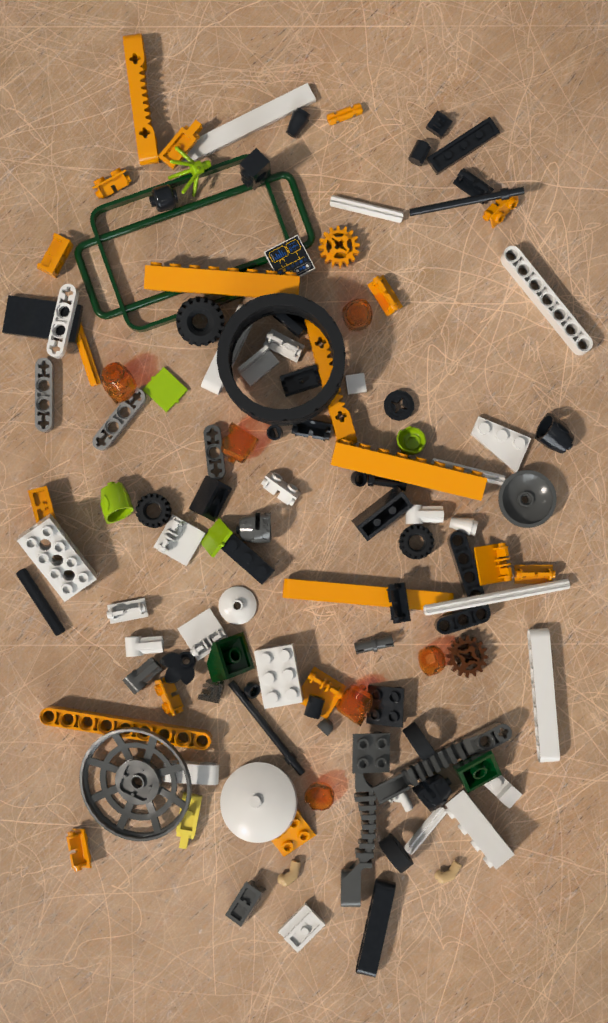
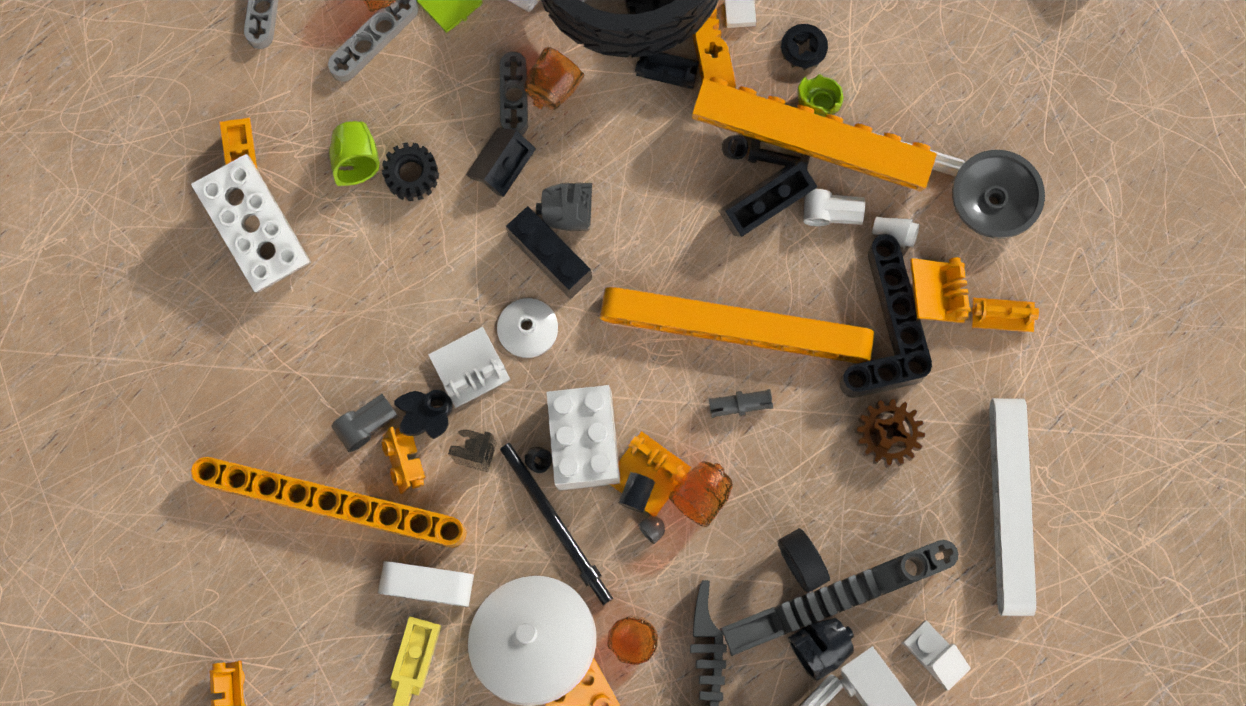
camera: 10 degrees right, 10 degrees down
(40, 601) = (218, 297): black axle -> none
(127, 611) = (352, 321): white hinge -> none
(131, 791) = (318, 596): dark grey dish -> none
(143, 645) = (363, 374): white piece -> none
(179, 540) = (446, 219): white hinge -> none
(216, 537) = (504, 215): lime piece -> none
(229, 658) = (506, 403): dark green slope -> none
(271, 433) = (603, 71): black hinge -> none
(288, 492) = (621, 160): white hinge -> none
(371, 753) = (723, 574): dark grey hinge -> none
(387, 706) = (754, 503): black hinge -> none
(398, 596) = (786, 332): black hinge -> none
(404, 800) = (769, 656): white arm -> none
(416, 530) = (818, 232): black tyre -> none
(431, 660) = (832, 433): clear orange hair -> none
(477, 770) = (898, 614): dark green slope -> none
(495, 597) = (942, 338): white axle -> none
(501, 441) = (960, 110): white wing -> none
(558, 437) = (1045, 102): black helmet -> none

